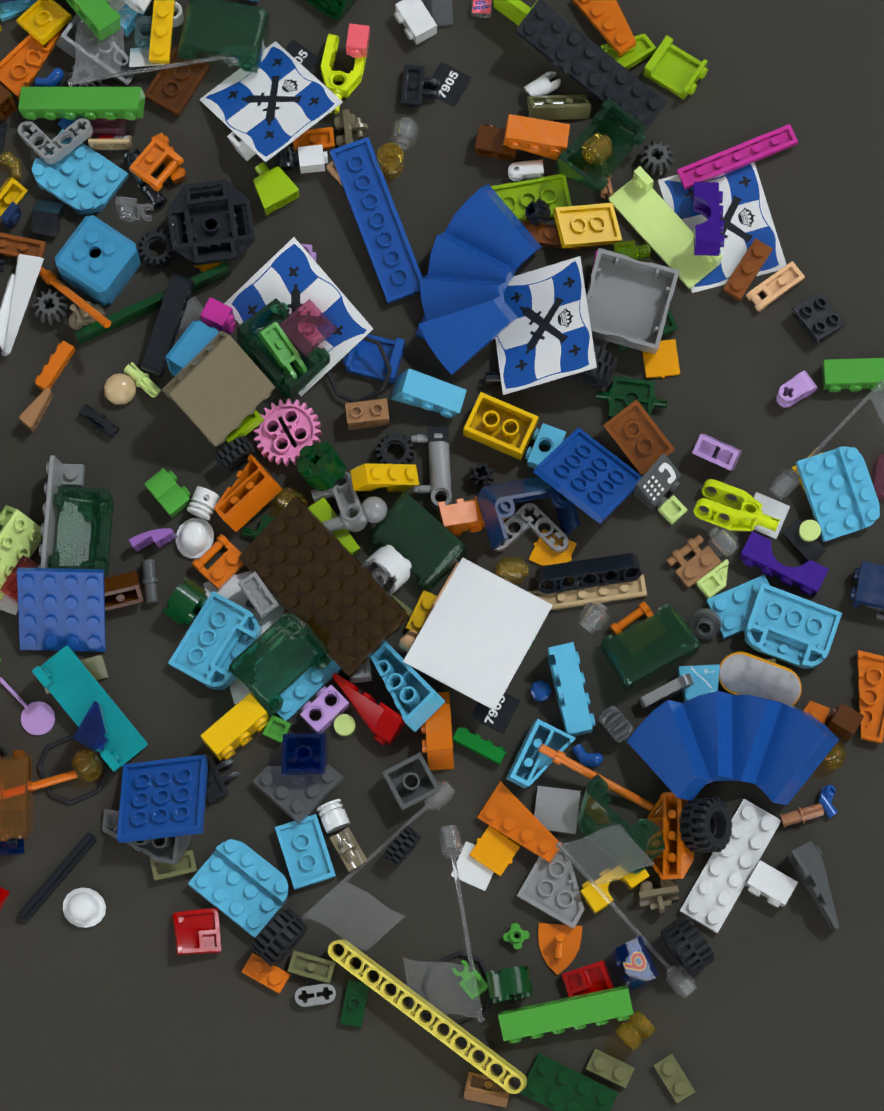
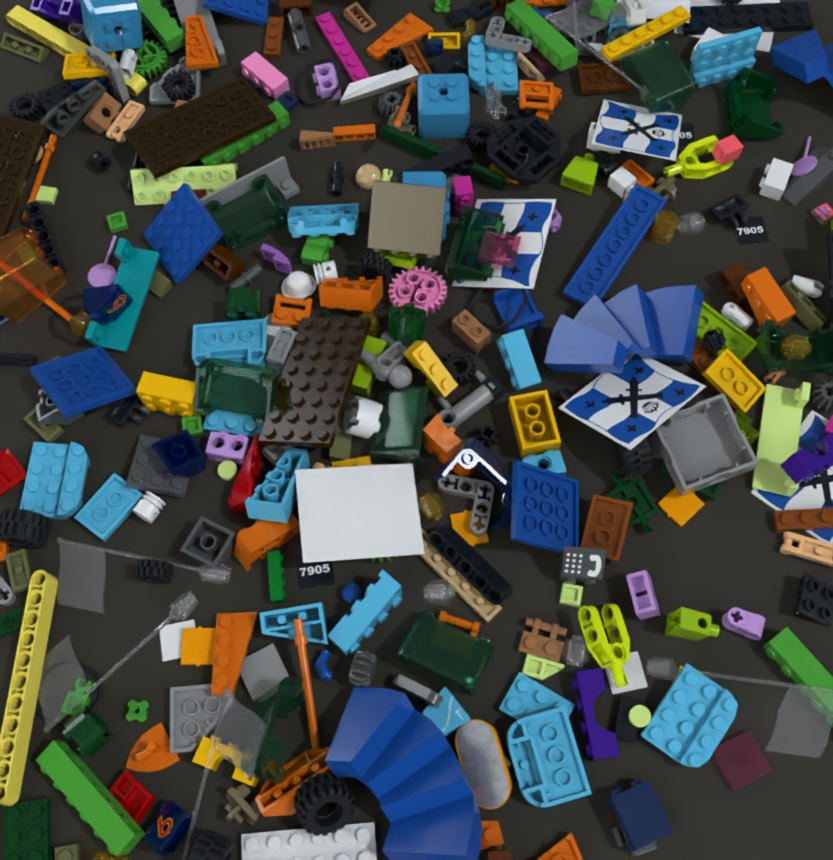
camera: 55 degrees right, 10 degrees down
(144, 464) = (323, 219): none -> medium azure plate
(282, 349) = (472, 242): bright green hinge -> none
(348, 849) = (128, 535): dark tan hips -> none
(705, 623) = (497, 684): dark grey plate -> none
(767, 434) = (690, 624): none -> lime torso

